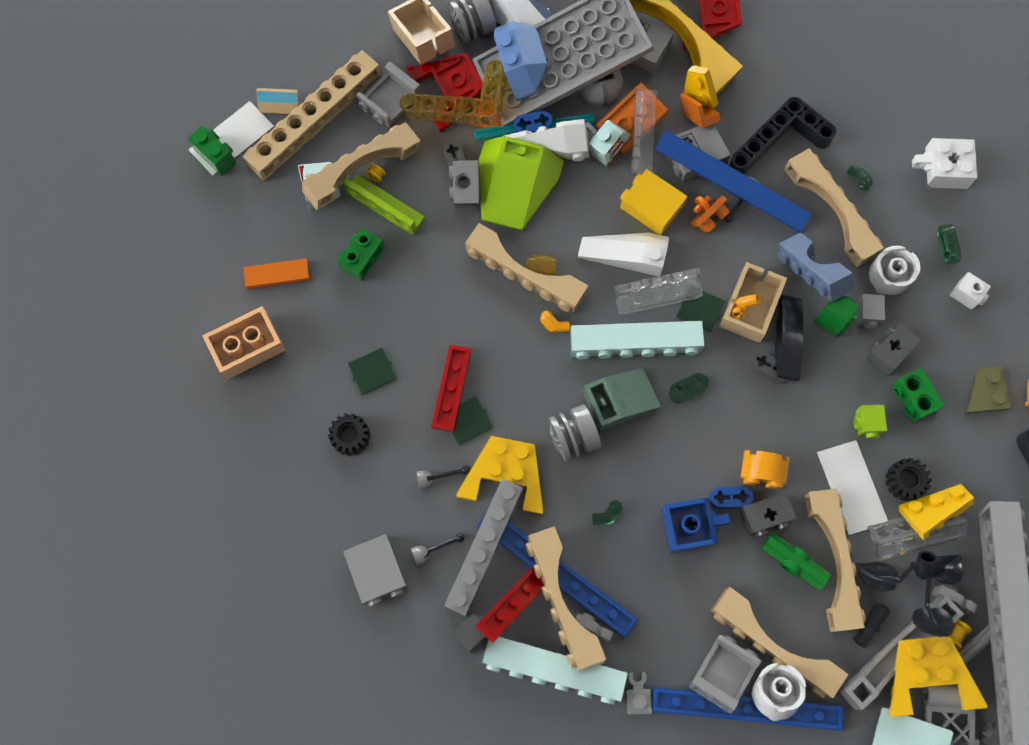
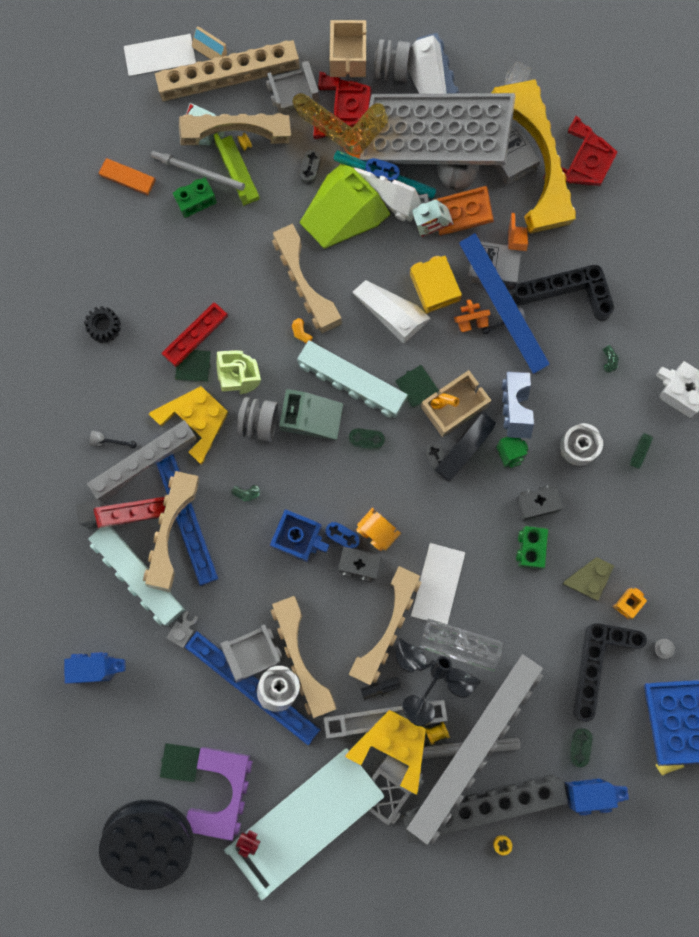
camera: 35 degrees right, 5 degrees up
(209, 147) = (136, 54): green brick -> none
(244, 343) = (70, 214): light nougat brick -> none
(309, 232) = (169, 160): none -> light grey bar
(372, 371) = (149, 288): clear green piece -> none
(375, 570) = (58, 430): light grey panel -> none
(426, 479) = (134, 388): hinge -> none
(467, 169) = (313, 181): light grey brick -> none
(520, 399) = (237, 371): none -> yellowish green brick
(521, 57) = (403, 113): medium blue wedge -> none
(542, 263) = (320, 282): clear yellow brick -> none
(590, 625) = (179, 559): light grey plate -> none
(643, 130) = (461, 224): clear fence -> none
(658, 291) = (391, 353): clear fence -> none
(700, 86) = (527, 216): yellow wing -> none
(795, 561) = (356, 609): green piece -> none
(810, 174) = (570, 332): tan arch -> none
(870, 421) = (483, 544): lime brick -> none
(871, 310) = (542, 464): light grey brick -> none
(920, 473) = (494, 603): black tyre -> none
(934, 509) = (480, 636): yellow wing -> none
(963, 604) = (452, 702): light grey plate -> none
(970, 291) = (631, 496): white brick -> none

